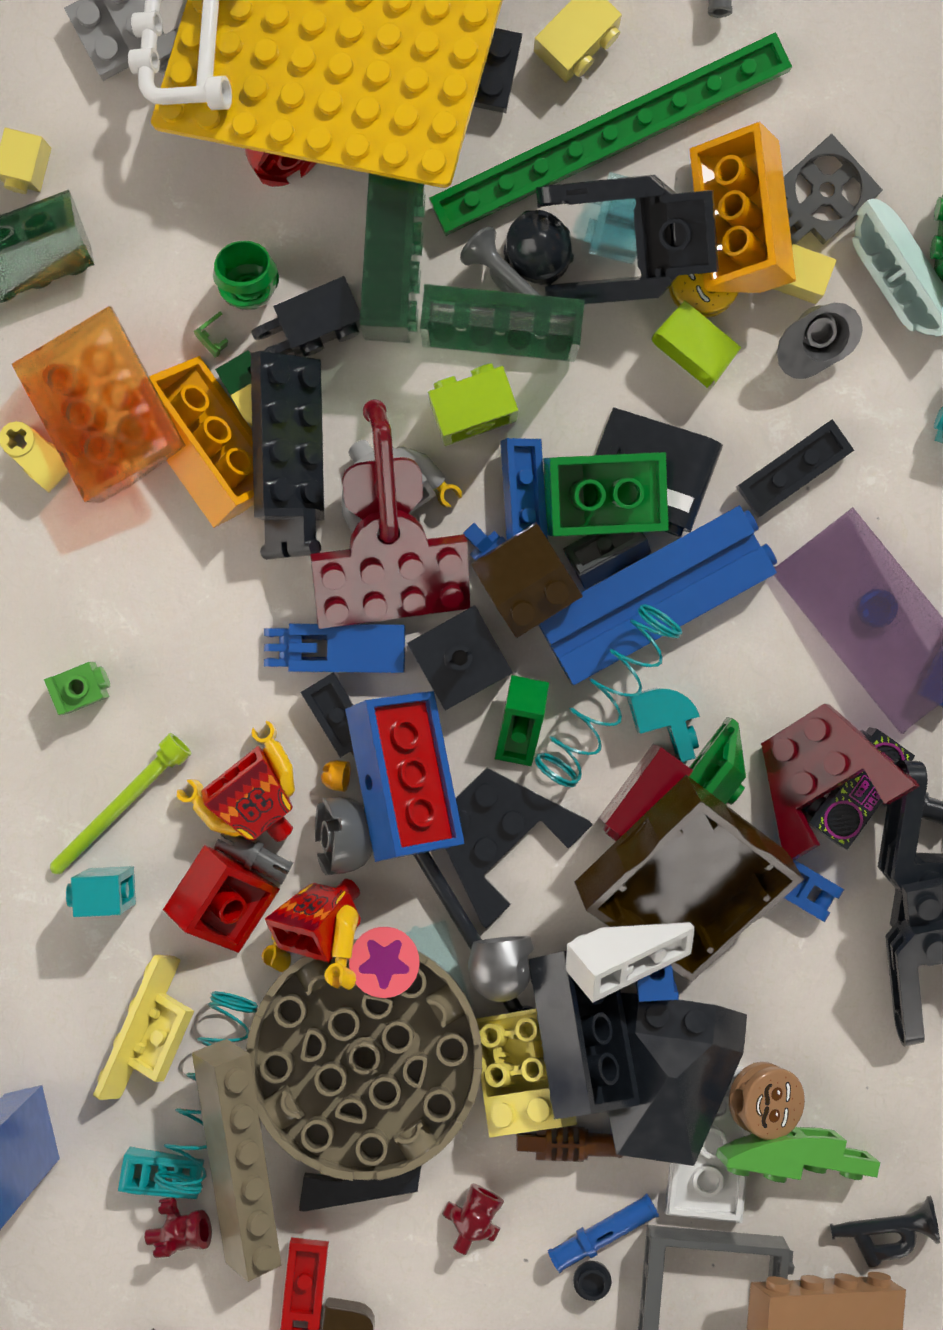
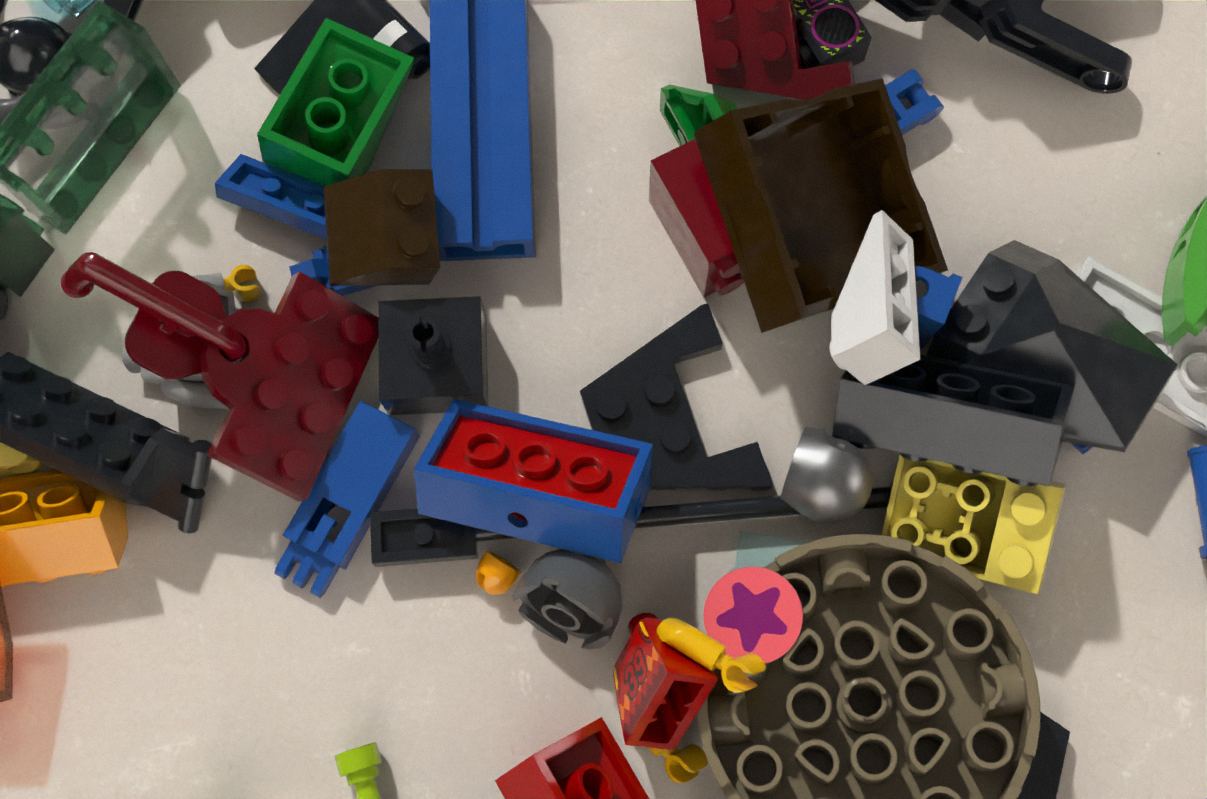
camera: 60 degrees left, 15 degrees down
(249, 794) = (461, 689): torso -> none
(254, 856) = (541, 726): dark grey pin -> none
(473, 404) = (154, 197): lime brick -> none
(475, 1217) = (1135, 674): dark red piece -> none
(522, 720) = (545, 323): green slope -> none
(566, 1144) = (1086, 513): reddish brown hinge -> none
(603, 555) = (407, 136): dark grey slope -> none
(662, 630) = (492, 104): teal piece -> none
(669, 708) = (614, 161): teal brick -> none
(766, 1100) = (1129, 256): medium nougat head -> none

